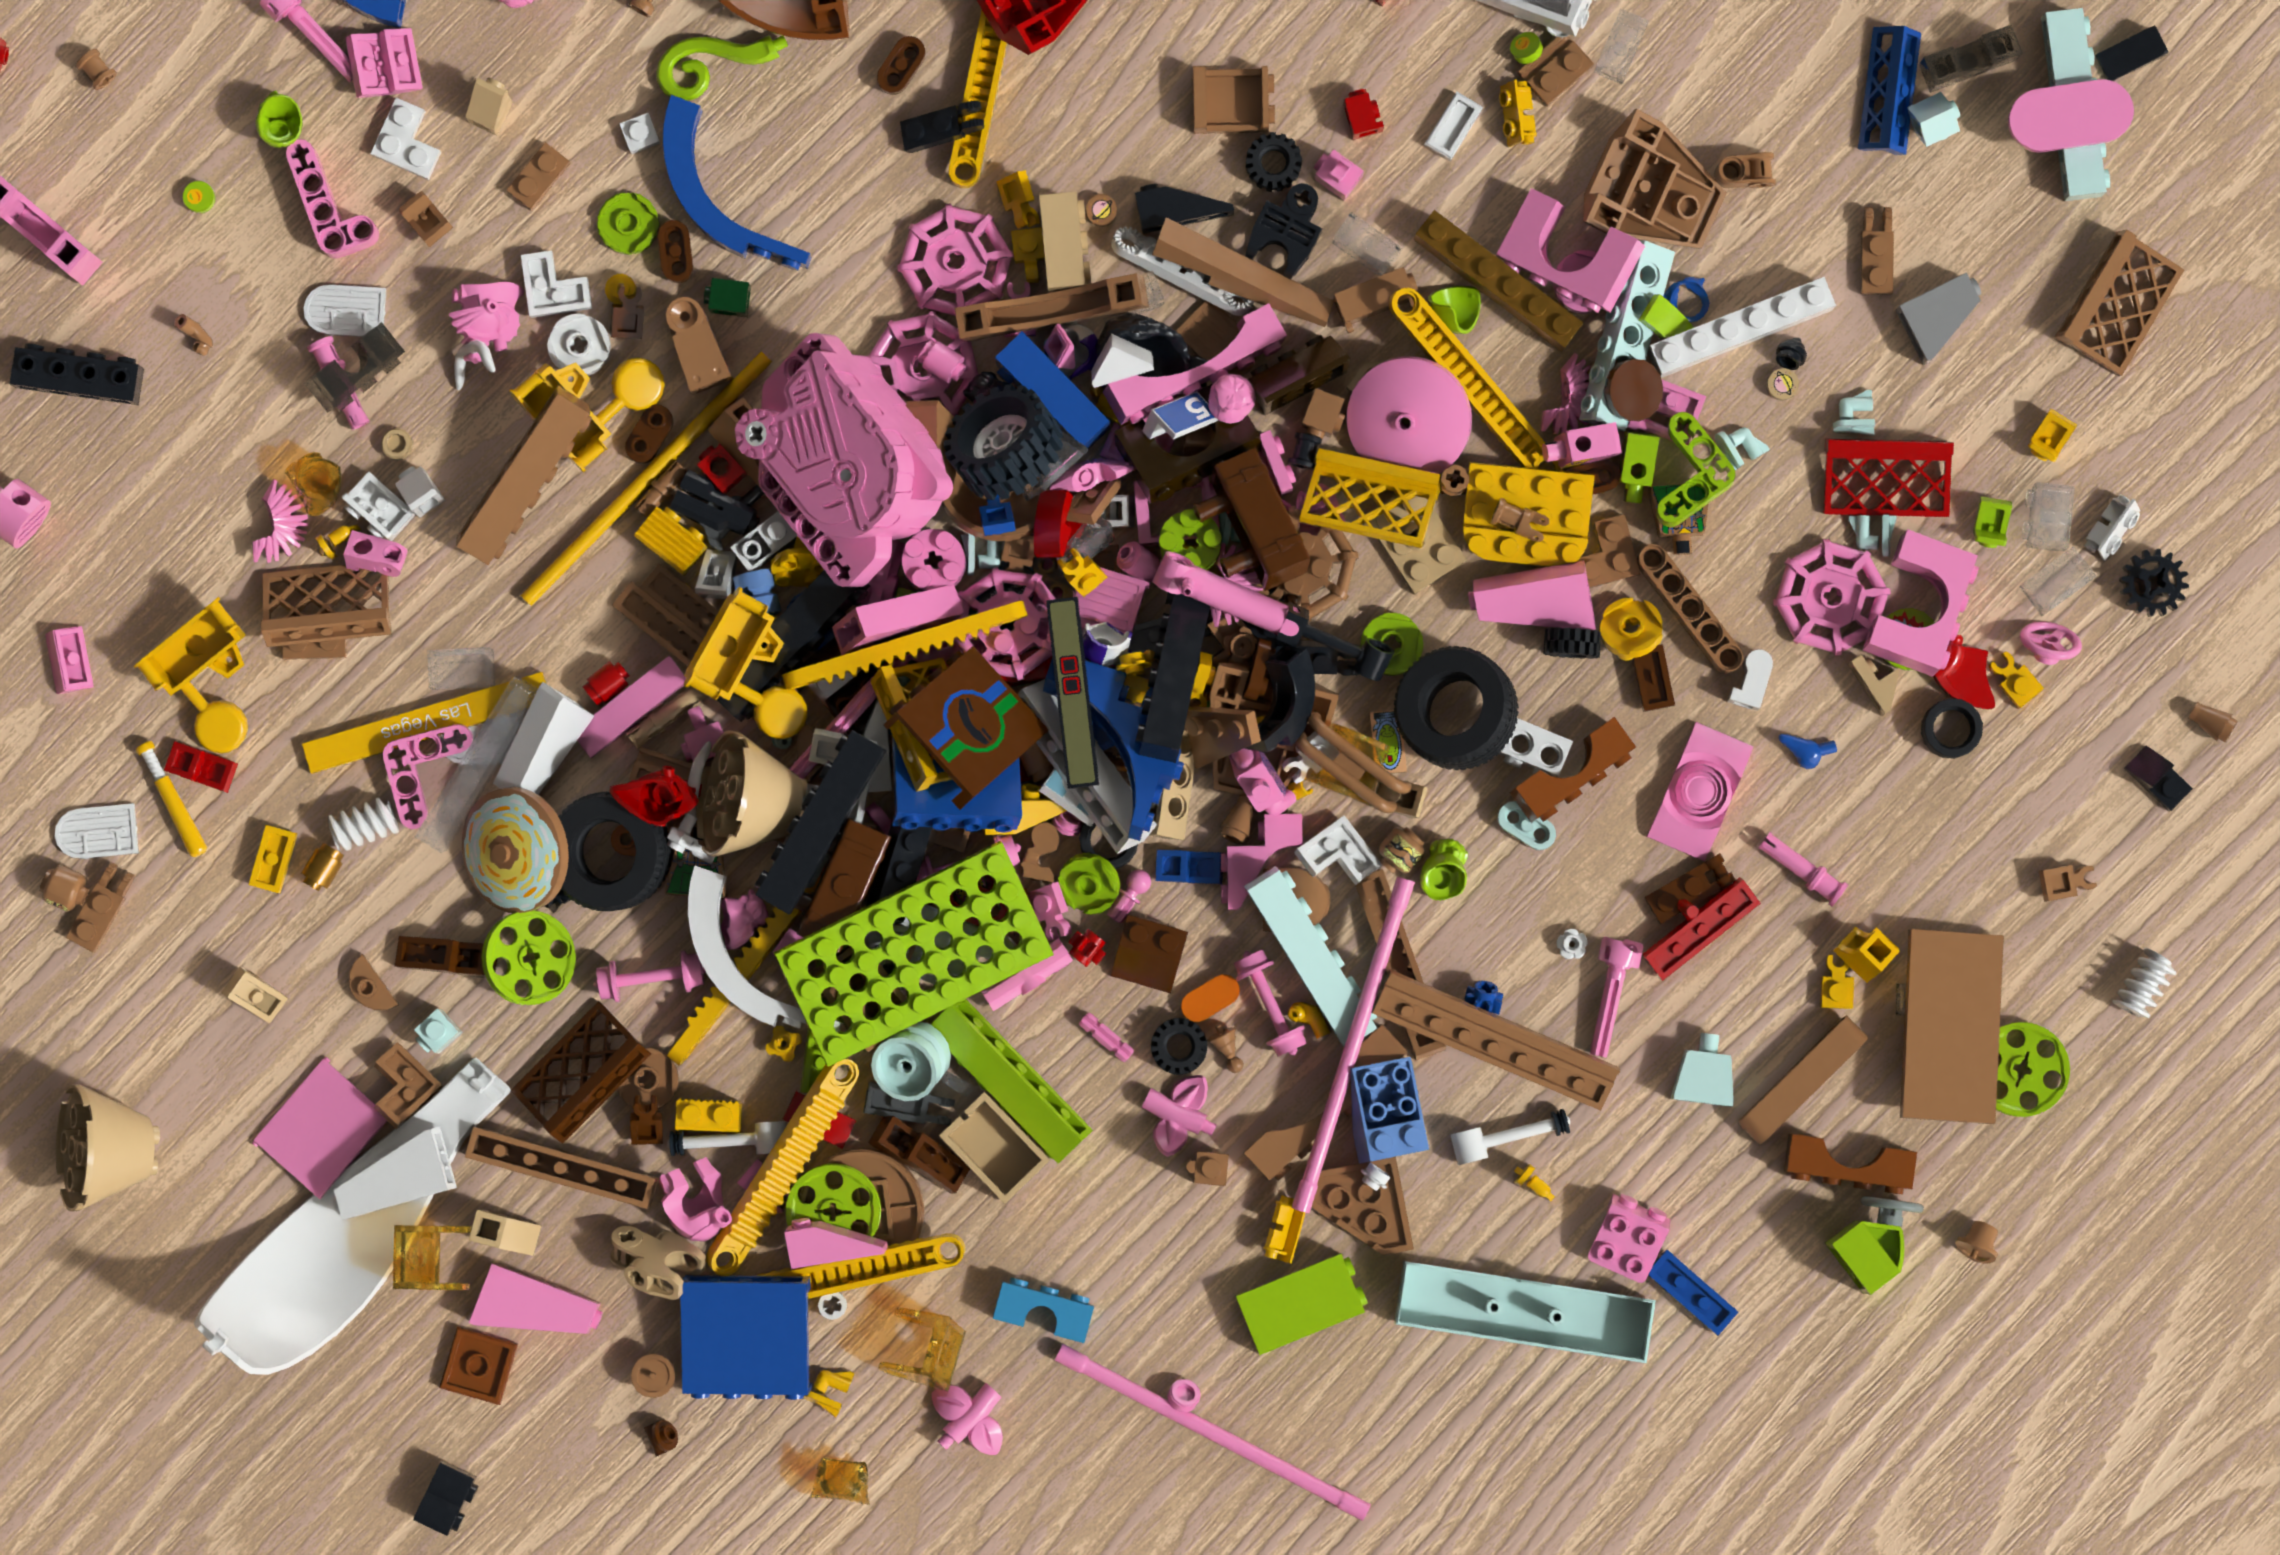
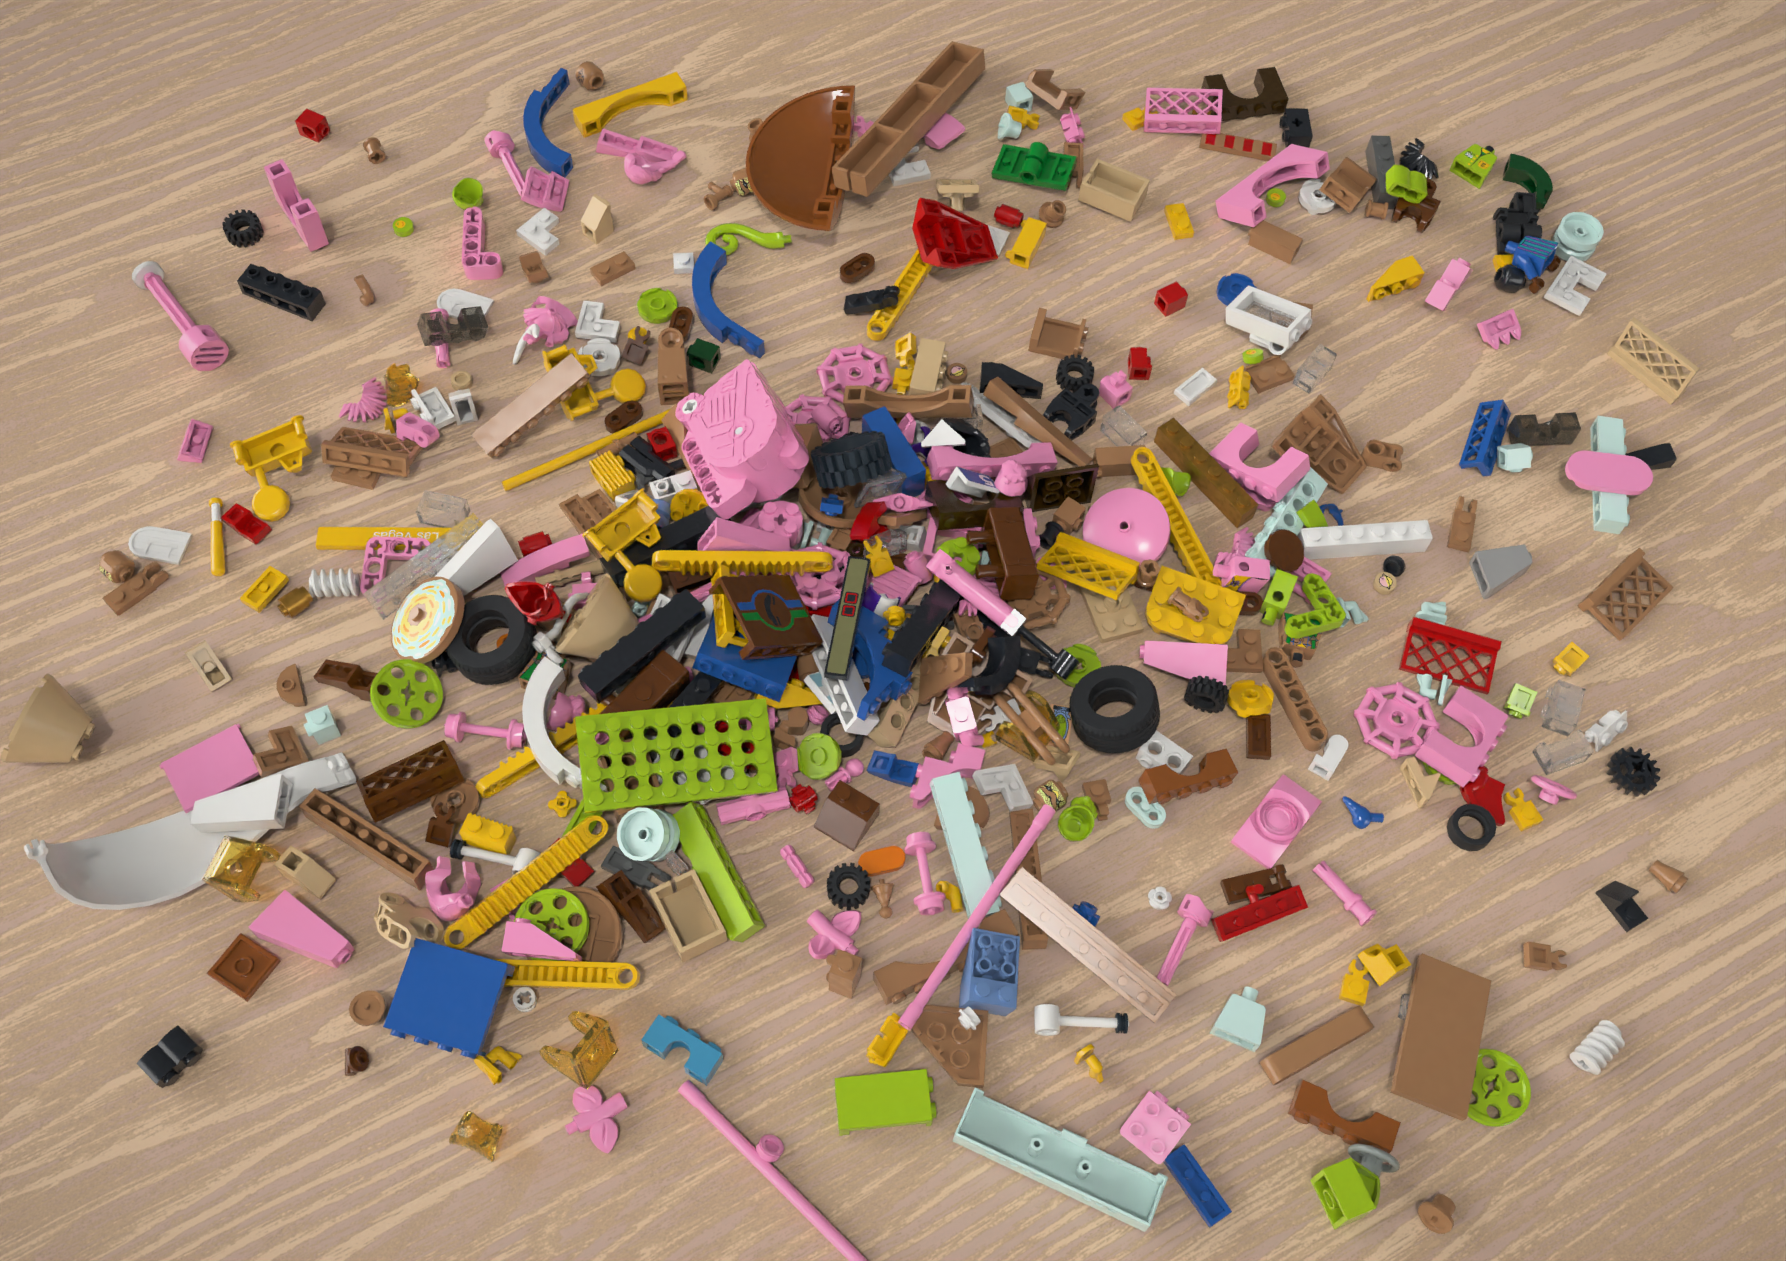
camera: 10 degrees right, 25 degrees down
(1461, 825) = (1099, 795): none -> medium nougat plate

